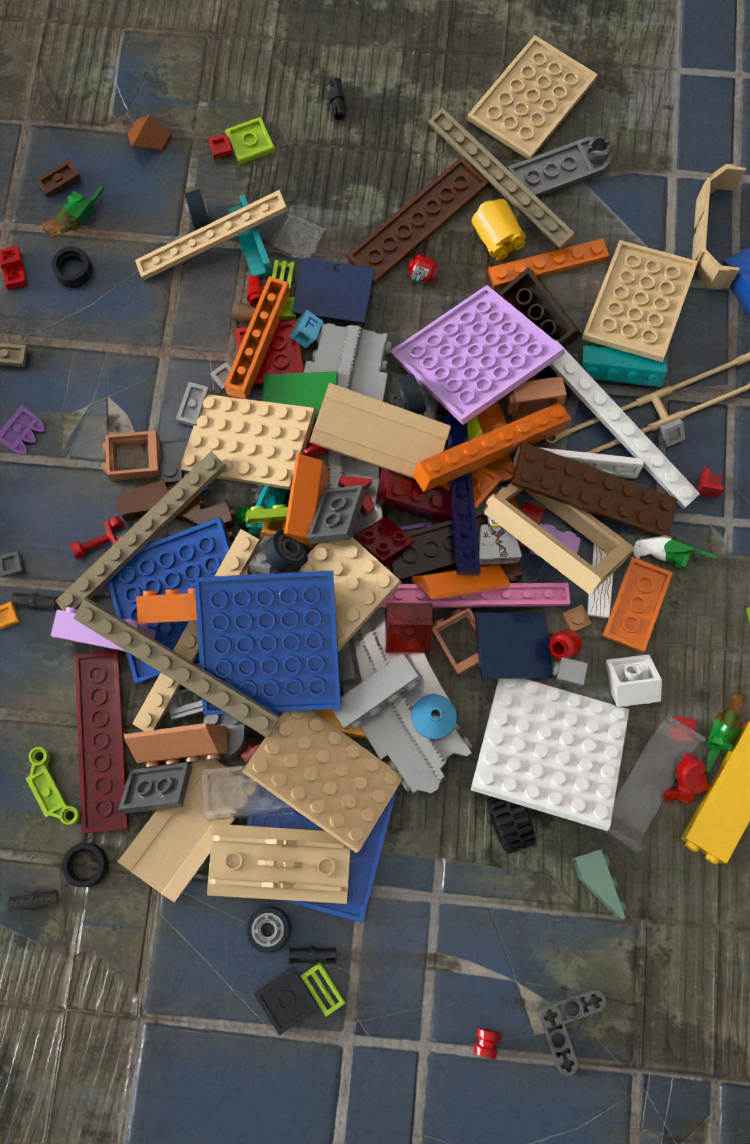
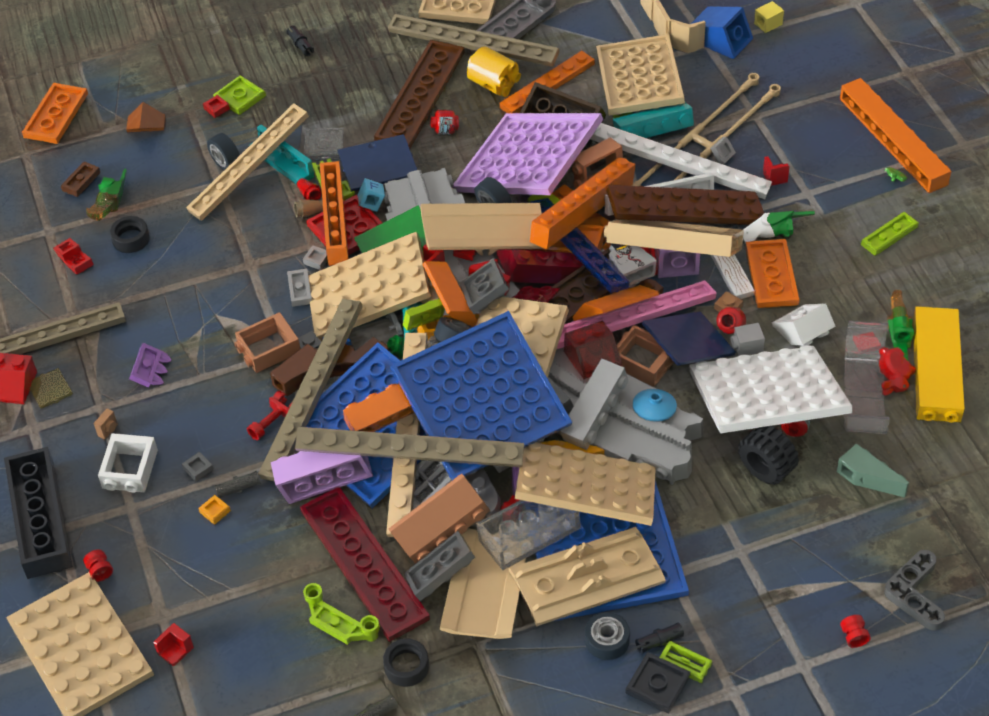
camera: 25 degrees left, 25 degrees down
(71, 85) = (55, 113): none -> orange plate

